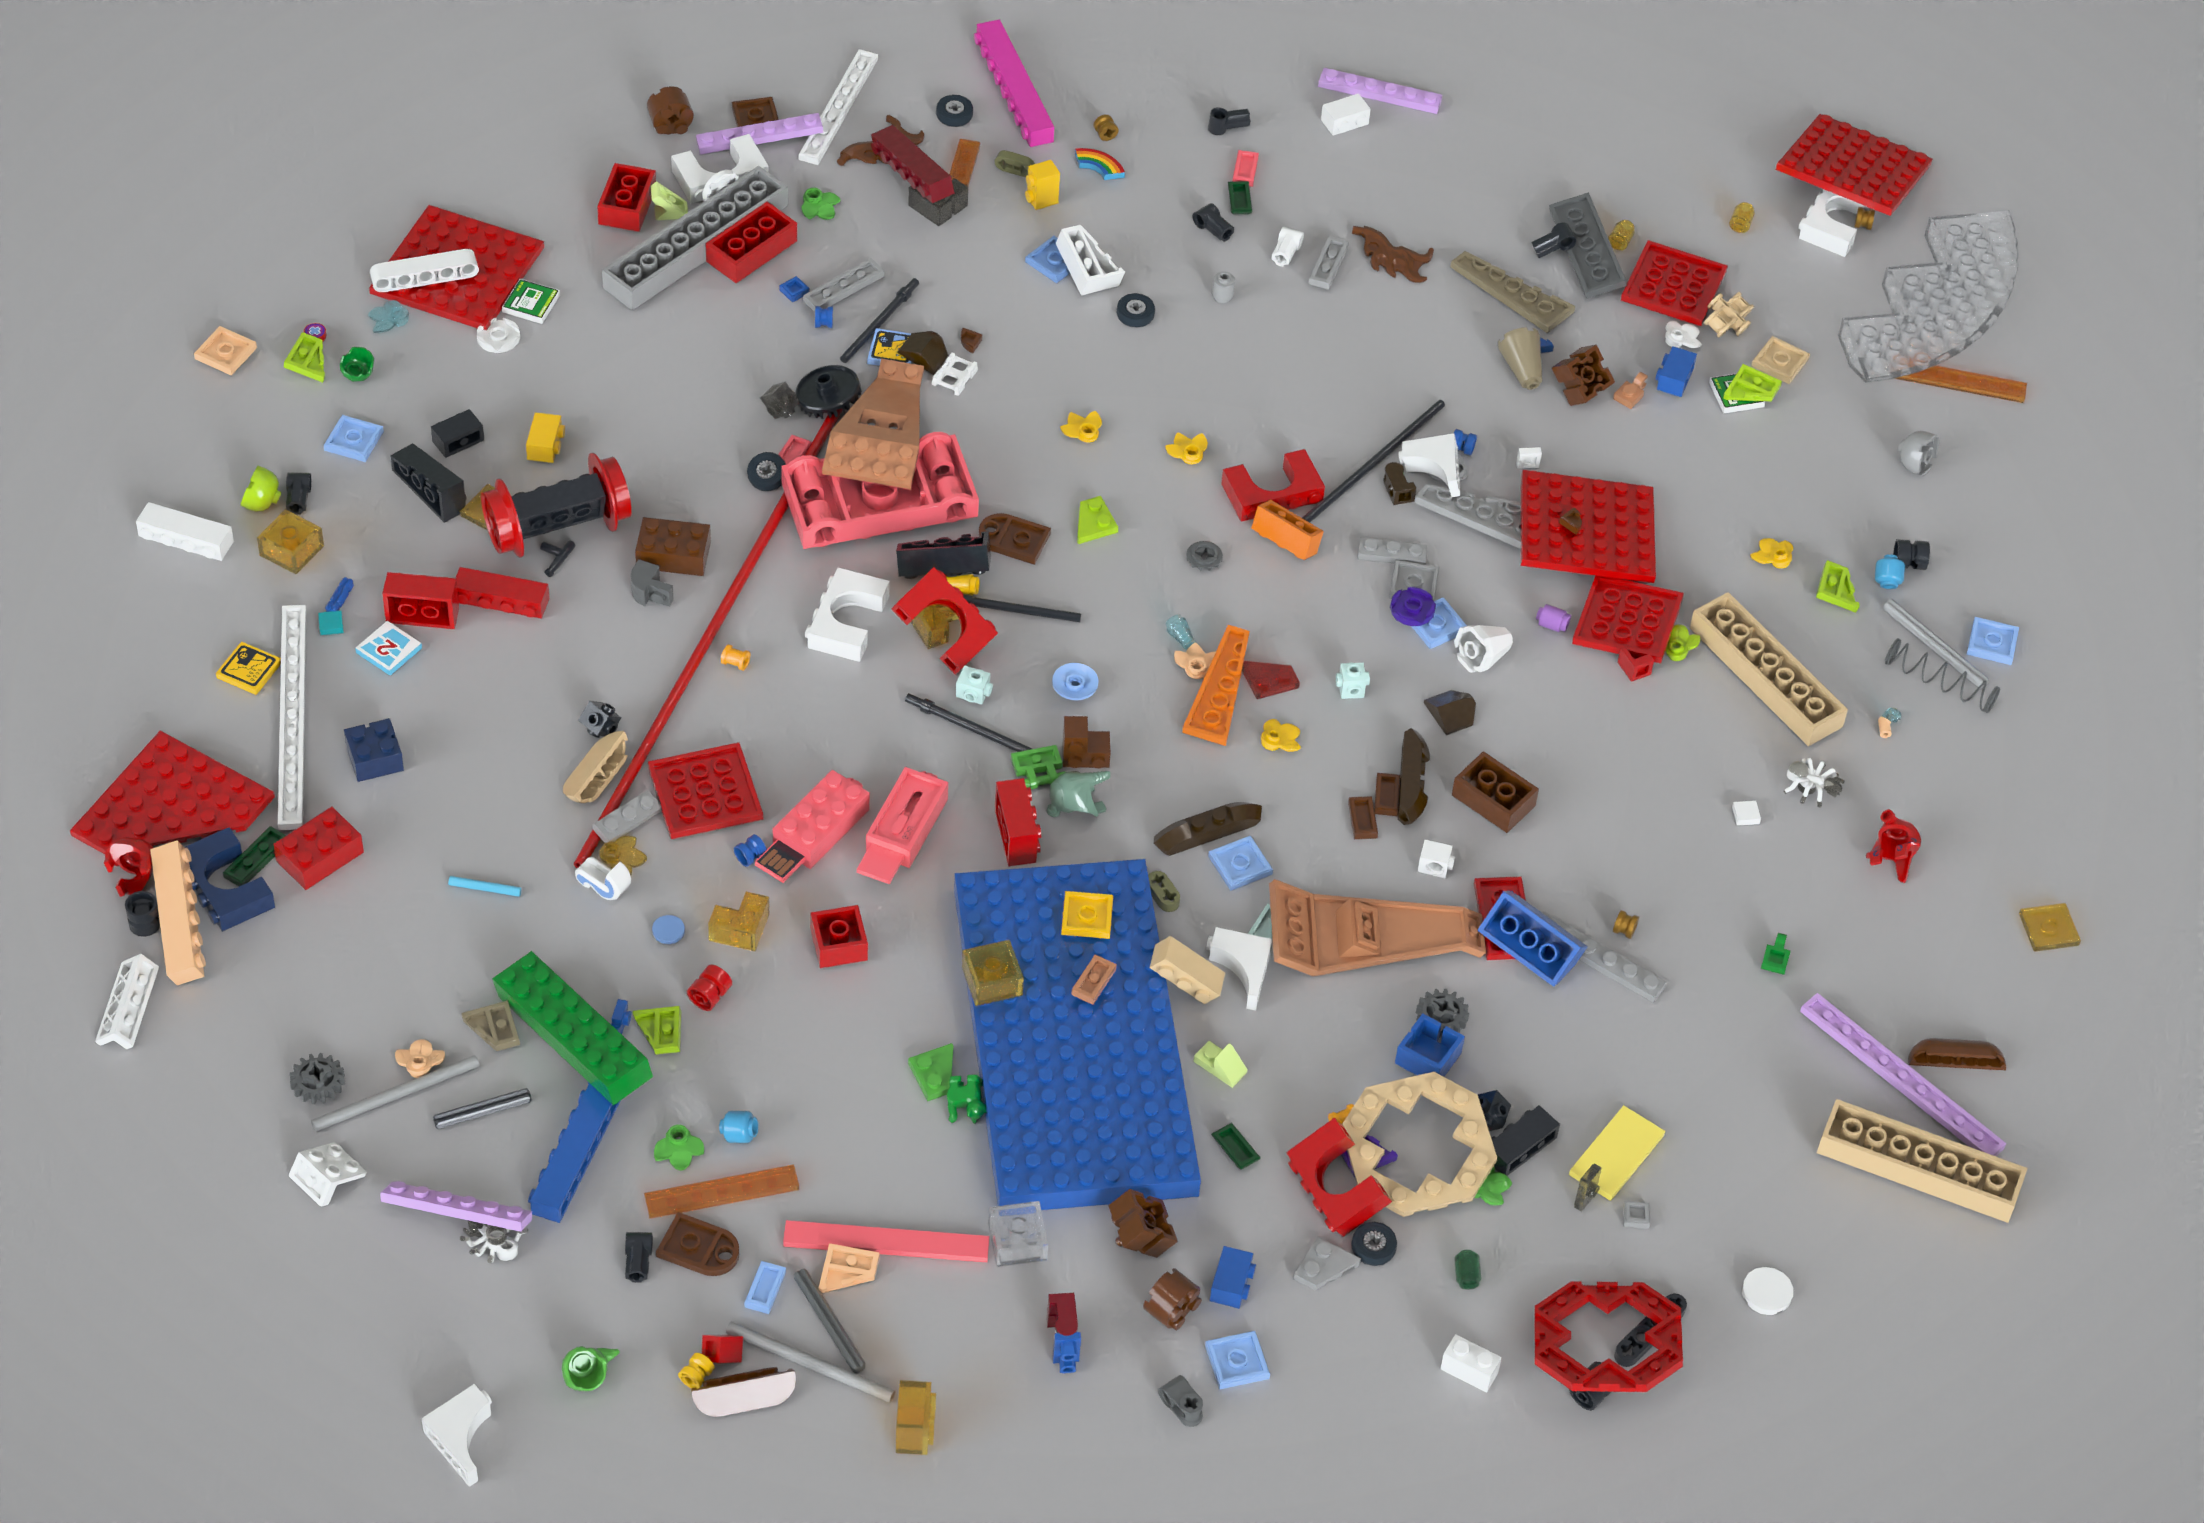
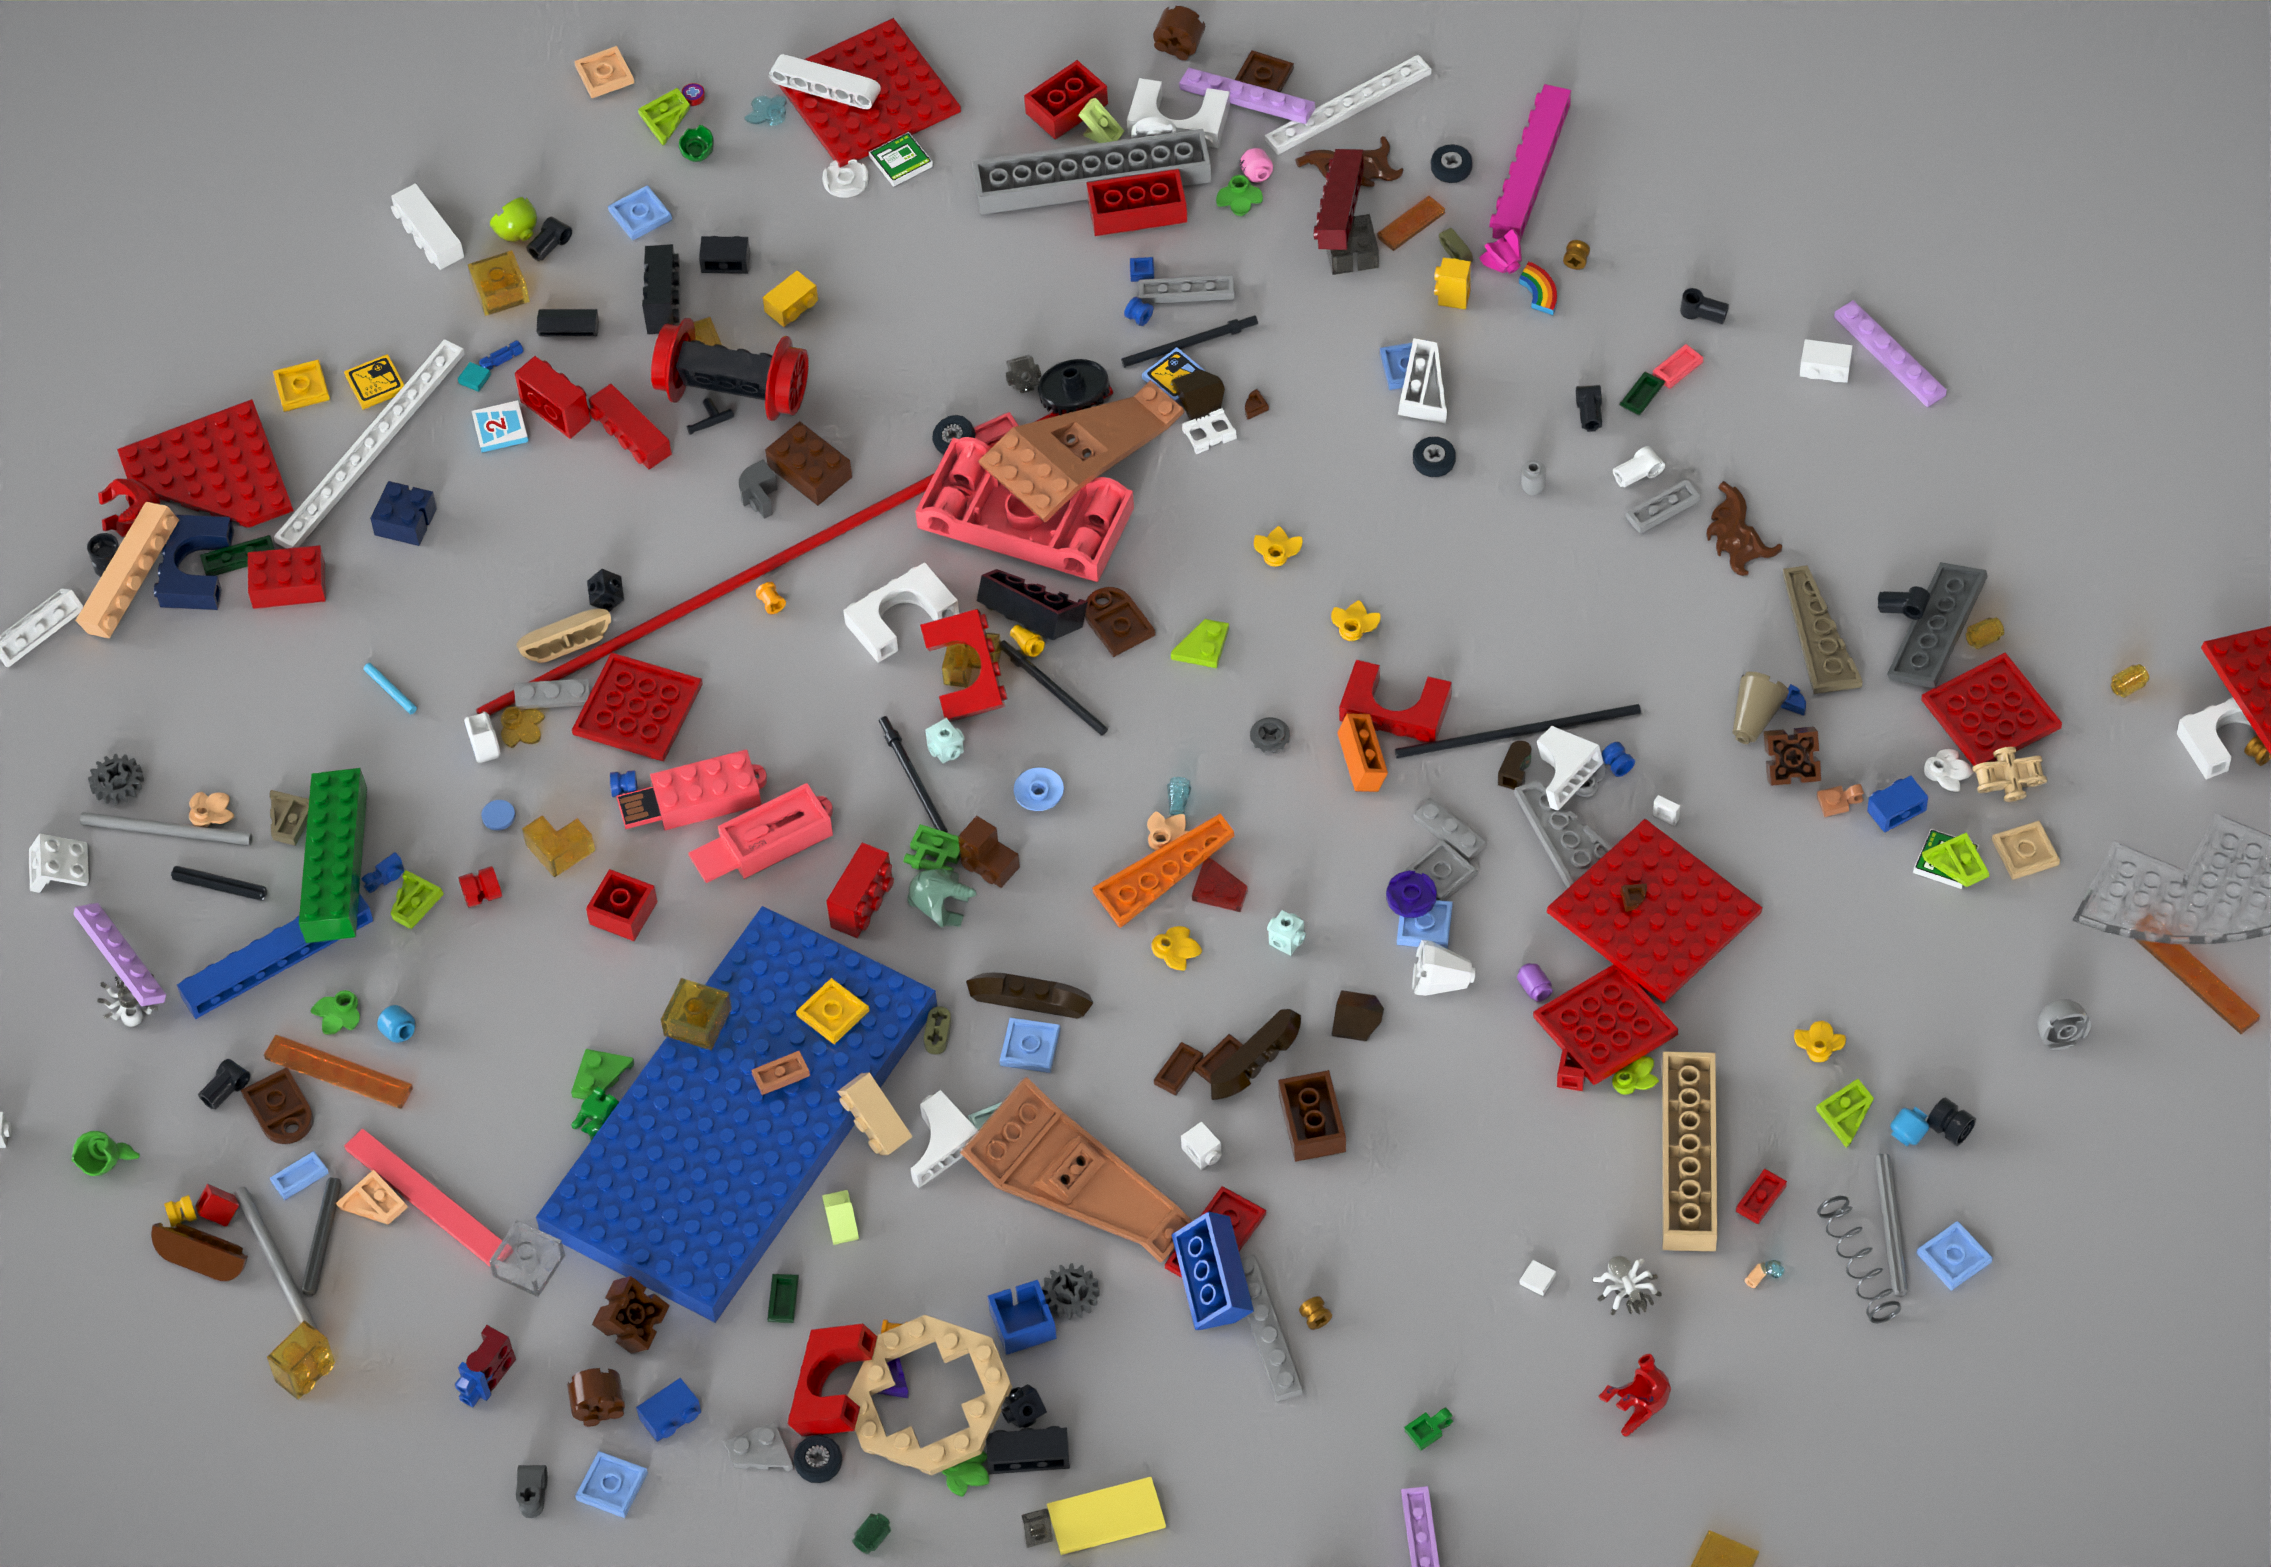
camera: 45 degrees right, 5 degrees up
(185, 703) = (301, 385): none -> yellow tile
(373, 544) = (567, 322): none -> black piece
(814, 176) = (1256, 165): none -> bright pink head
(1058, 149) = (1503, 254): none -> dark pink brick
(1838, 673) = (1761, 1196): none -> red plate

